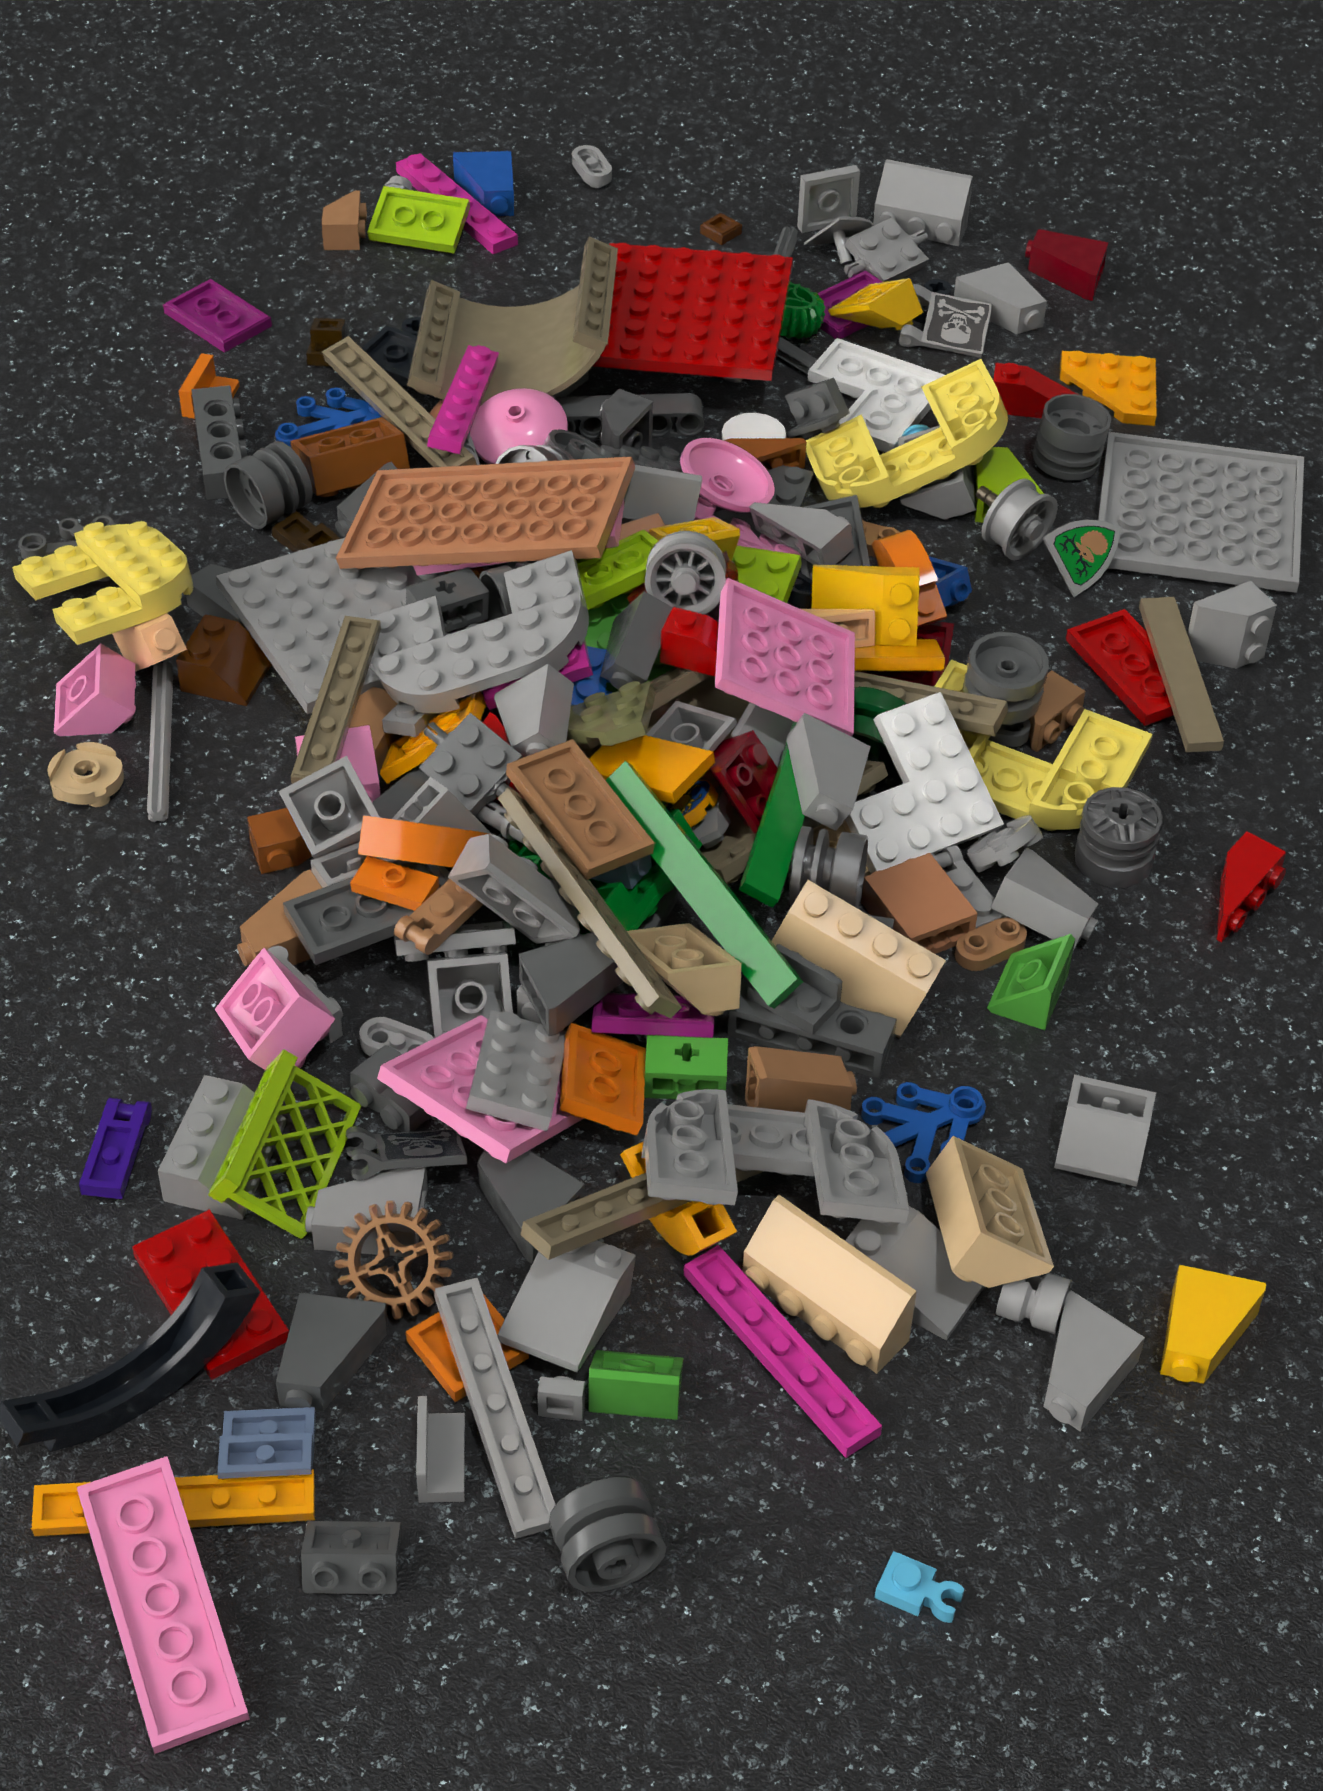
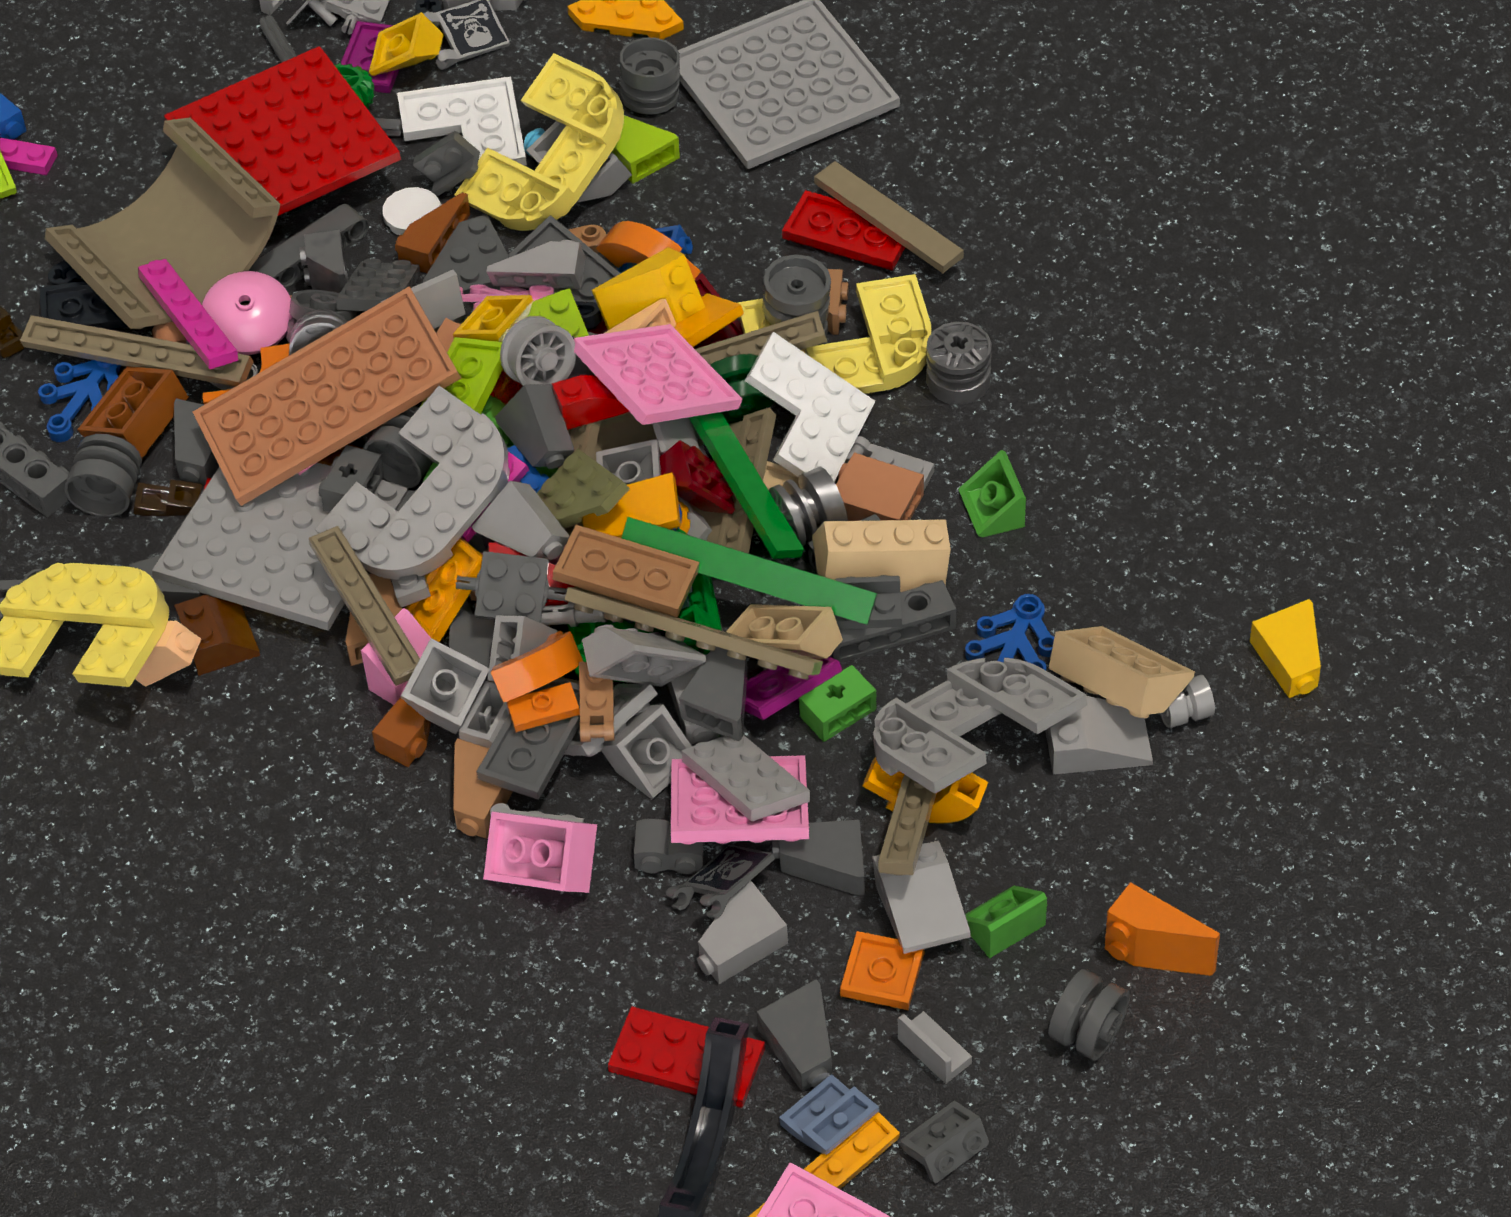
camera: 35 degrees left, 5 degrees up
(93, 789) = (207, 796): tan plate -> none
(95, 695) = (148, 720): bright pink slope -> none
(115, 1148) = (525, 1013): dark purple plate -> none
(160, 742) = (235, 724): light grey axle -> none
(203, 1144) = (596, 964): light grey slope -> none
(253, 1134) = (623, 935): lime fence -> none
(386, 1240) = (810, 928): medium nougat gear -> none
(392, 1033) = (632, 811): light grey plate -> none
(496, 1407) = (945, 991): light grey plate -> none
(561, 1398) = (973, 959): light grey plate -> none
(592, 166) = (49, 50): light grey plate -> none
(603, 1079) = (800, 745): orange plate -> none
(721, 229) = (207, 48): reddish brown tile -> none
(728, 473) = (441, 250): bright pink dish -> none
(758, 1505) = (1159, 935): none -> orange slope
(783, 1351) = (1070, 838): dark pink plate -> none
(789, 1078) = (921, 665): medium nougat slope -> none
(826, 770) = (751, 437): light grey slope -> none
(830, 1285) = (1065, 777): tan slope -> none
(912, 1585) = (1271, 921): medium azure plate -> none
(995, 942) = (943, 485): medium nougat plate -> none
(1003, 846) = (891, 415): light grey plate -> none
(1017, 517) = (676, 164): light grey wheel -> none
(1025, 390) = (587, 51): red slope -> none
(1045, 900) = (952, 437): light grey slope -> none
(1083, 551) = (741, 163): shield -> none
(1088, 1361) = (1248, 719): light grey slope -> none
(1105, 1130) = (1130, 567): light grey slope -> none
(1232, 626) = (895, 158): light grey slope -> none
(1247, 875) = (1057, 345): red slope -> none

